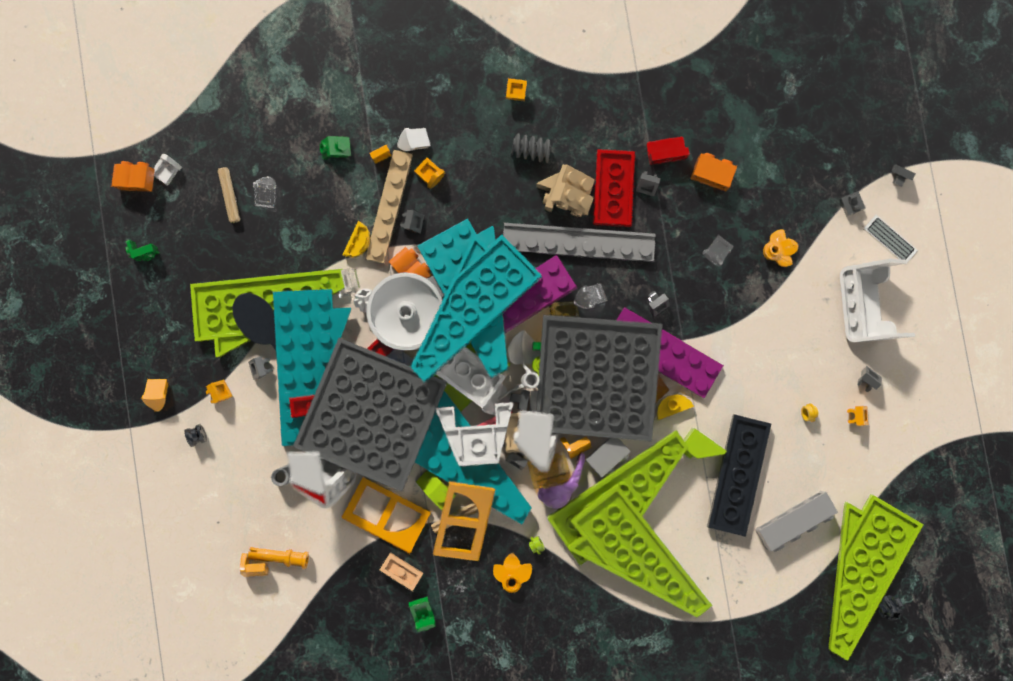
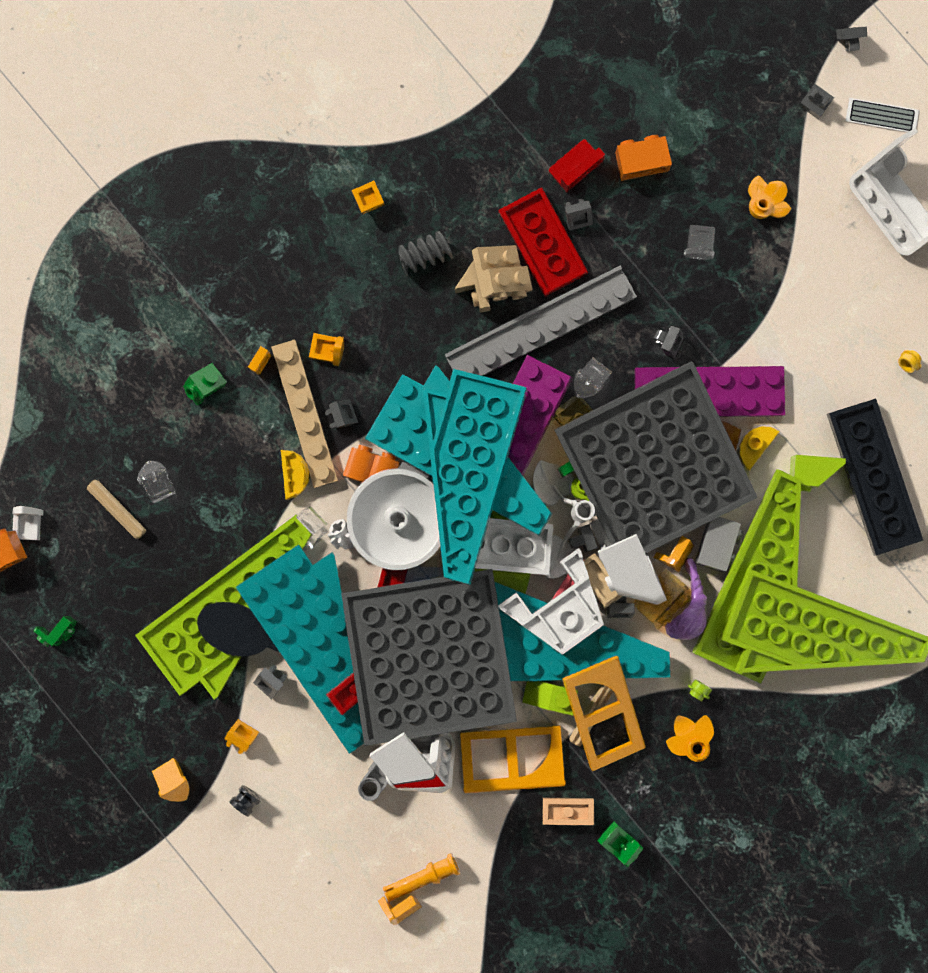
camera: 25 degrees left, 0 degrees up
(413, 139) = (286, 322): white tile -> none

